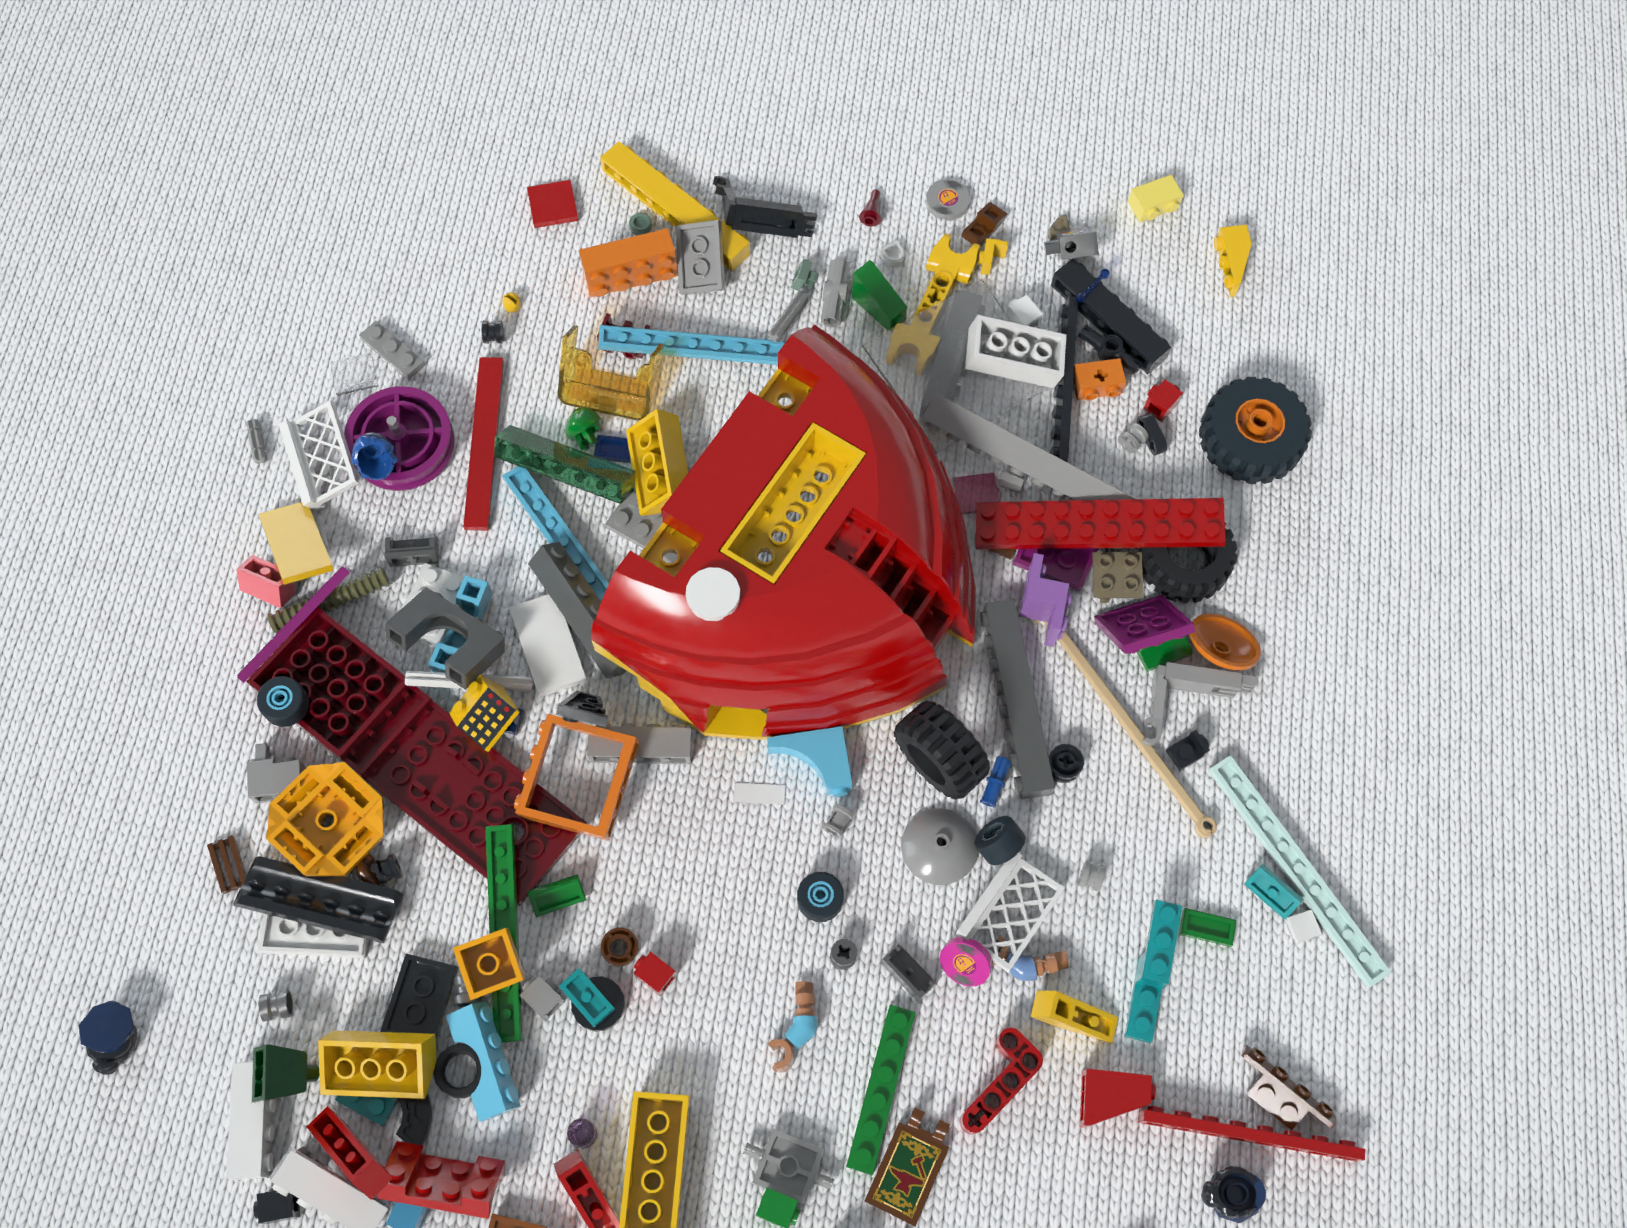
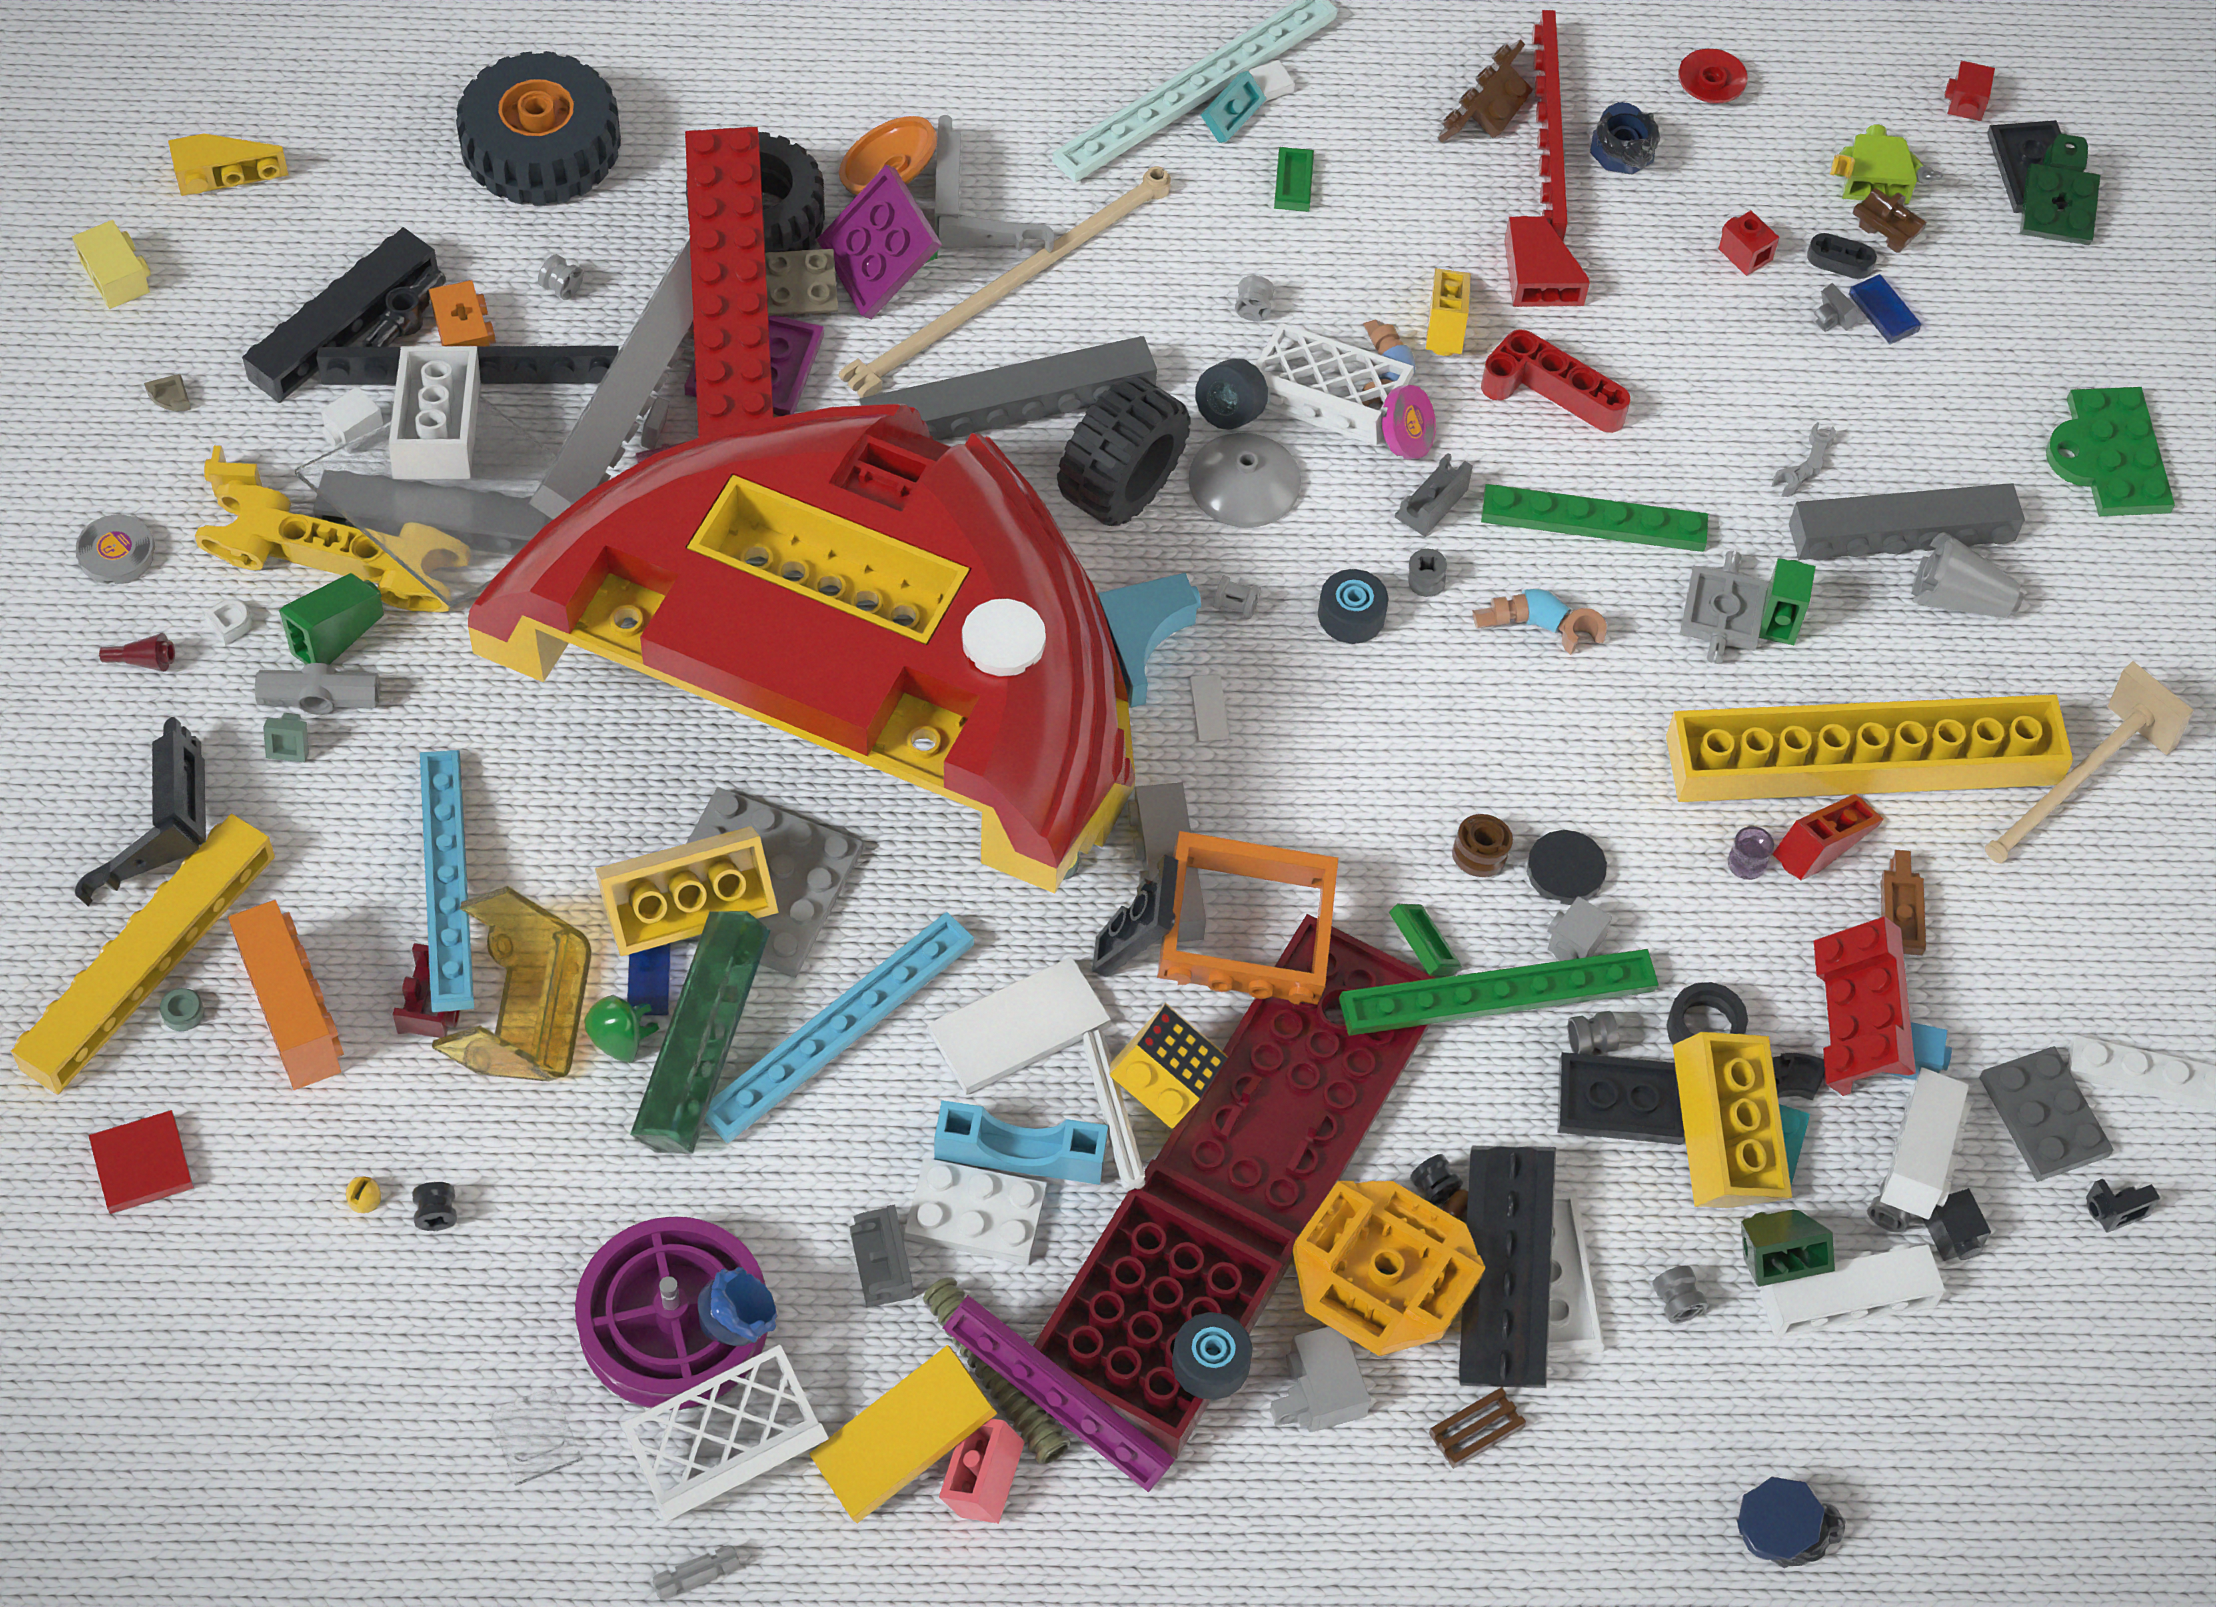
camera: 100 degrees left, 10 degrees down
(349, 1153) = (1868, 1112): red brick -> none
(392, 350) = (480, 1379): light grey plate -> none
(432, 612) = (1051, 1089): dark grey arch -> none
(482, 444) = (656, 1187): red tile -> none
(489, 963) = (1559, 979): light orange brick -> none
(496, 1089) = (1650, 1004): medium azure arch -> none
(572, 597) = (957, 970): dark grey brick -> none
(586, 997) = (1567, 869): teal plate -> none
(654, 973) = (1512, 790): red brick -> none
(700, 257) = (257, 872): light grey plate -> none
(788, 316) = (371, 749): light grey axle -> none
(908, 1169) = (1684, 476): tile -> none
(984, 225) = (165, 495): reddish brown slope -> none
(1045, 600) = (868, 344): medium lavender bracket -> none
(1073, 756) = (1096, 323): black wheel -> none
(1082, 240) = (213, 354): torso -> none
(1104, 274) = (273, 313): clear blue hinge -> none
(1153, 971) = (1372, 222): teal bracket -> none
(1156, 441) = (534, 256): black beam -> none
(1162, 399) = (491, 243): red brick -> none
(1188, 750) = (1049, 201): black bracket -> none

